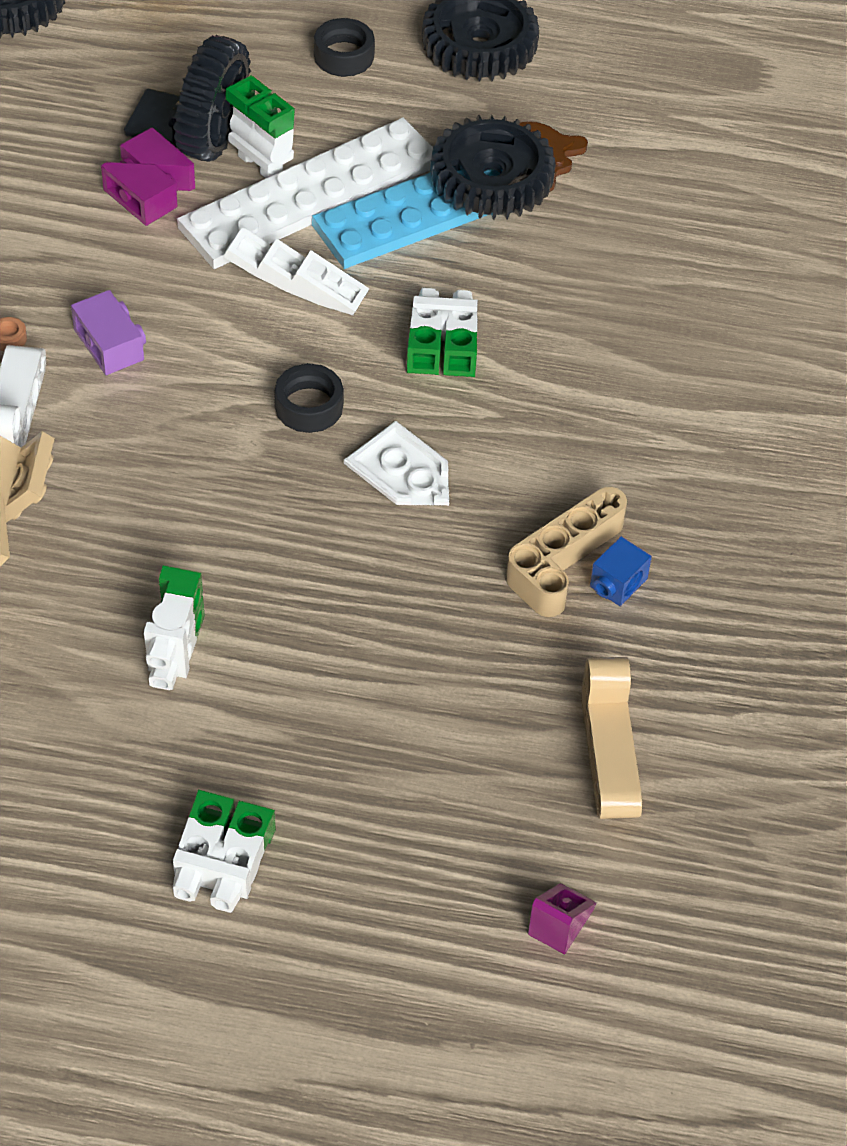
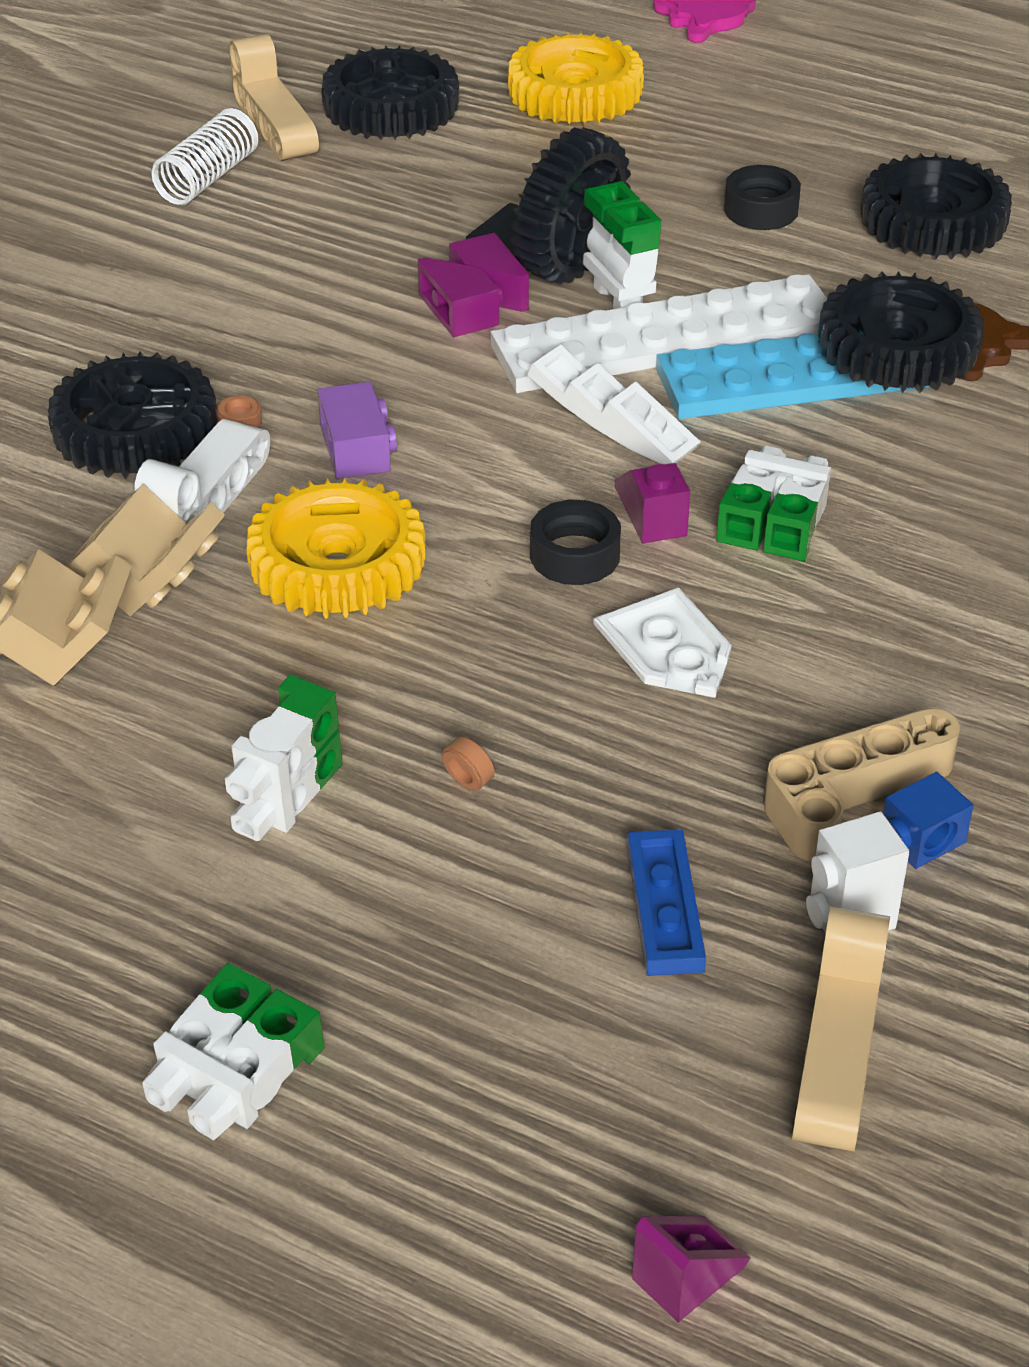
camera: 20 degrees right, 10 degrees down
(129, 416) = (330, 518): none -> yellow gear
(298, 598) = (468, 763): none -> nougat tile
(355, 350) = (656, 501): none -> magenta slope
(467, 672) = (665, 903): none -> blue plate
(592, 627) = (858, 869): none -> white brick

